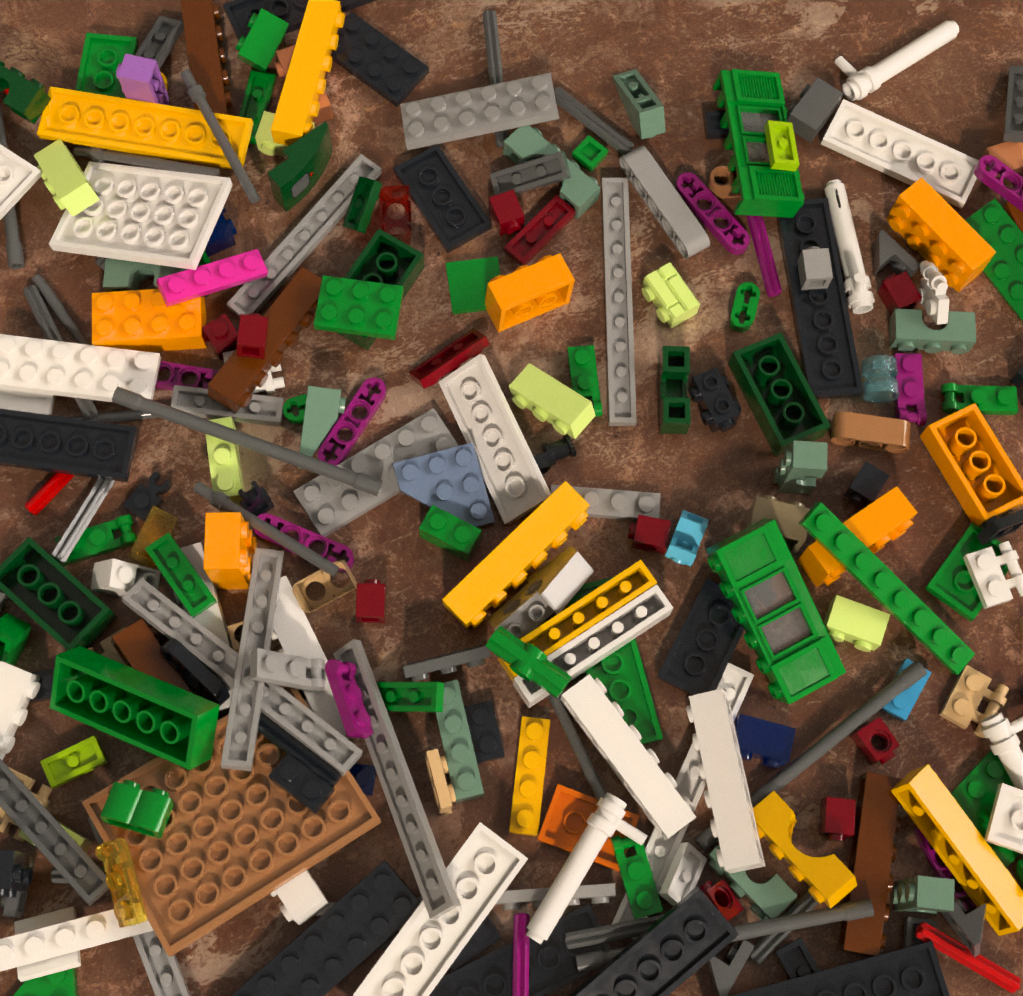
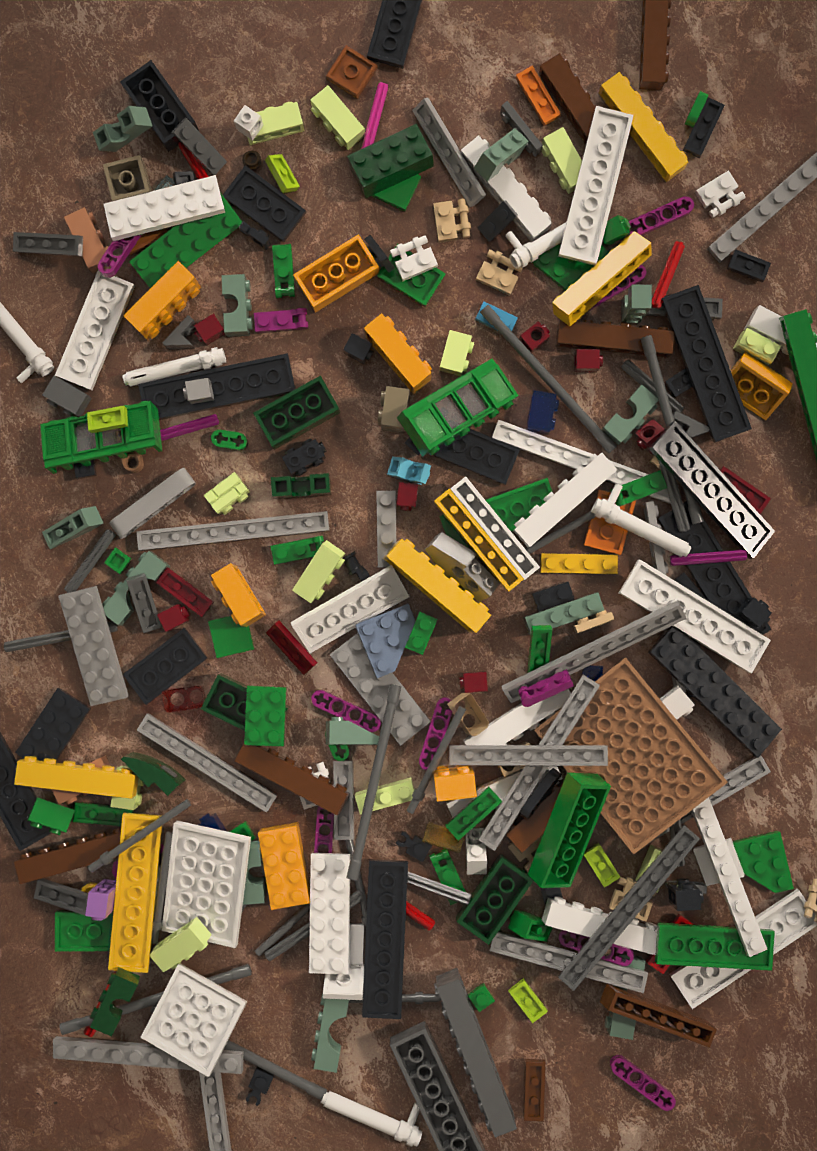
camera: 90 degrees left, 15 degrees up
(122, 882) = (685, 818): clear yellow plate -> none
(137, 808) = (637, 816): green brick -> none
(212, 277) = (251, 824): dark pink plate -> none
(221, 335) = (292, 811): dark red brick -> none
(252, 336) = (297, 788): dark red brick -> none
(256, 500) = (412, 770): black plate -> none
(286, 670) = (534, 732): light grey plate -> none
(299, 751) = (586, 717): black axle -> none
(301, 783) = (607, 712): black plate -> none
(362, 204) = (179, 723): dark green plate -> none
(446, 663) = (513, 626): dark grey plate -> none
(528, 661) = (515, 570): green piece -> none
(683, 873) = (635, 458): white plate -> none
(708, 215) = (155, 465): magenta beam -> none
(726, 782) = (576, 434): white brick -> none
(801, 467) = (354, 394): sand green arch -> none
(825, 875) = (596, 400): yellow arch -> none
(871, 432) = (317, 346): medium nougat beam -> none
(880, 379) = (277, 341): clear light blue wheel -> none
(886, 588) = (434, 333): green plate -> none
(933, 292) = (210, 305): white plate -> none
(967, 926) = (651, 272): dark grey slope -> none

